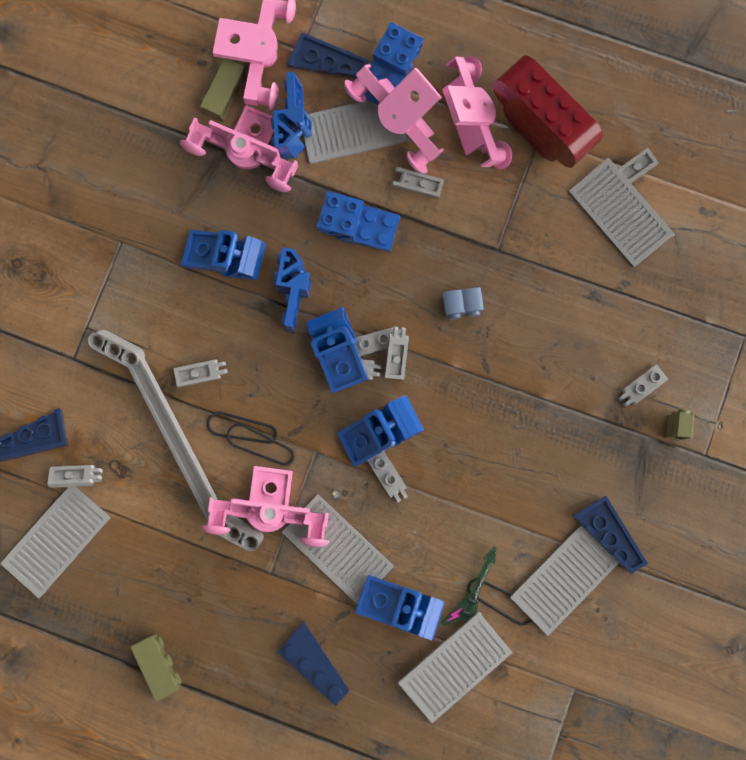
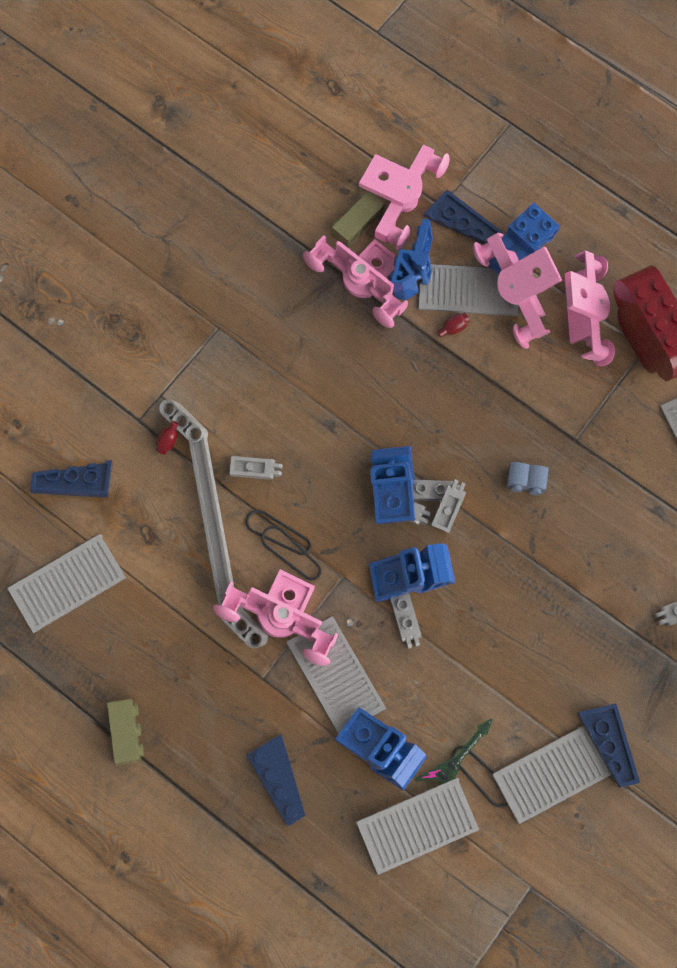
camera: 15 degrees right, 10 degrees down
(74, 476) = (105, 527): light grey hinge -> none
(105, 370) = (166, 438): none -> dark red plant
(224, 254) = (313, 366): blue piece -> none
(293, 282) = (369, 410): blue piece -> none
(349, 169) = (454, 324): none -> dark red plant
(357, 223) = (447, 374): blue piece -> none
(418, 183) = (517, 355): light grey hinge -> none

